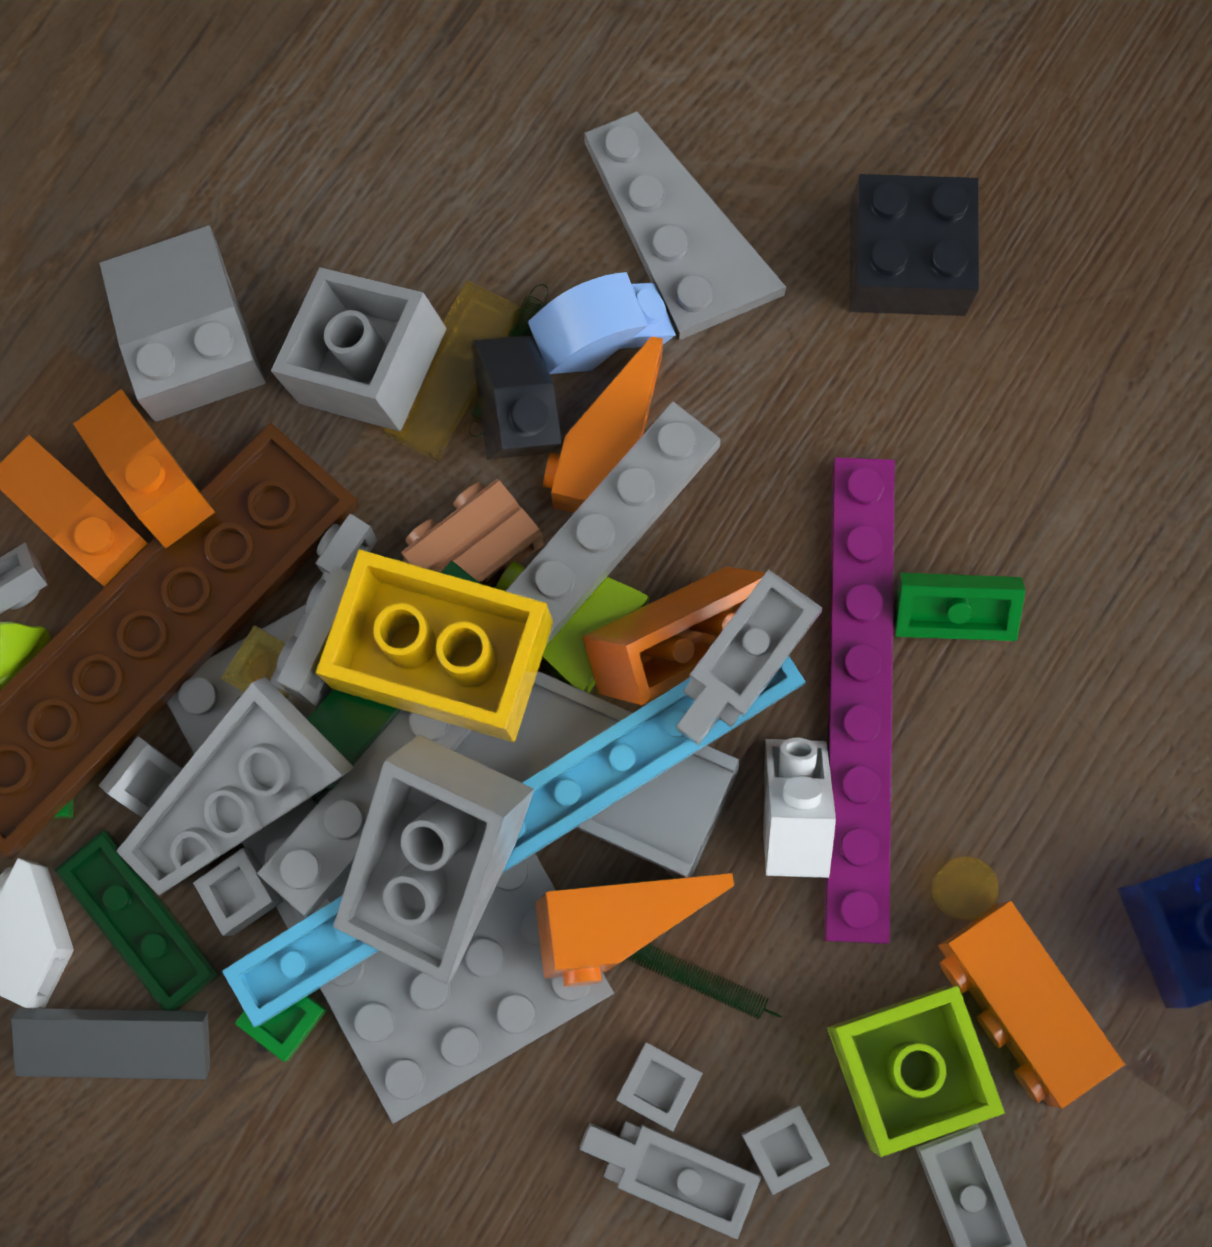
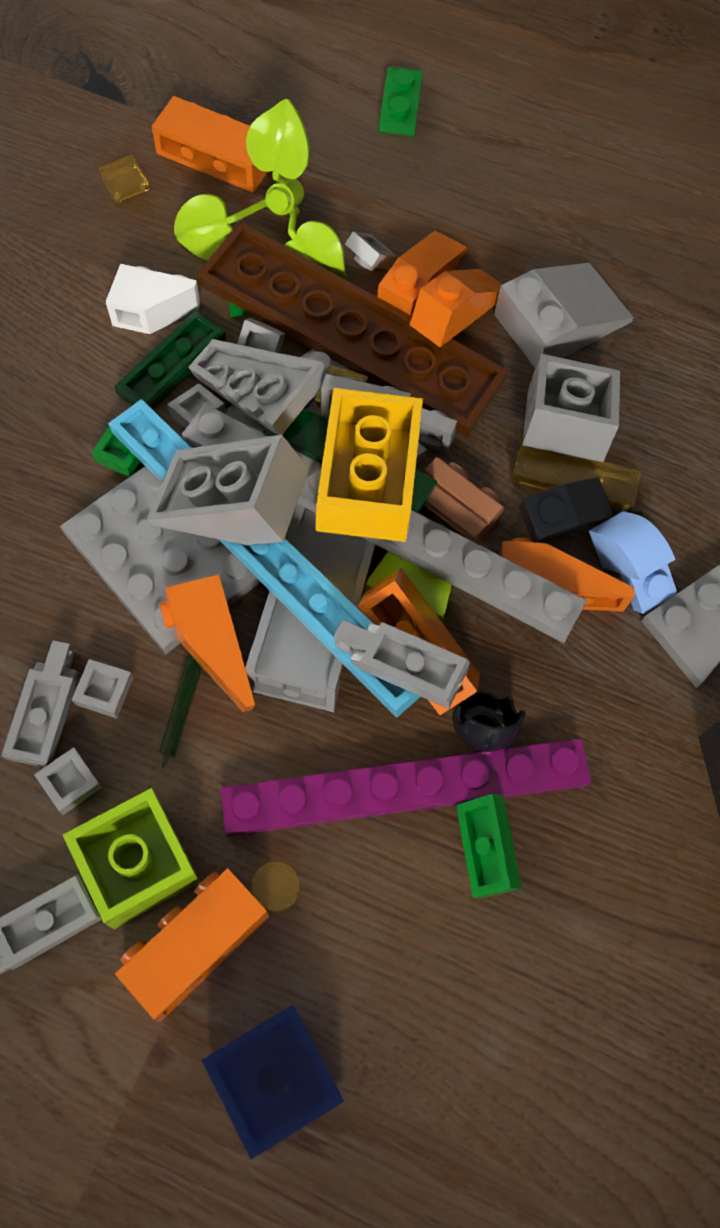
camera: 75 degrees right, 10 degrees down
(111, 1043) = (92, 360): dark grey tile -> none
(797, 808) = (311, 748): white slope -> none
(802, 559) = (487, 721): none -> black hair

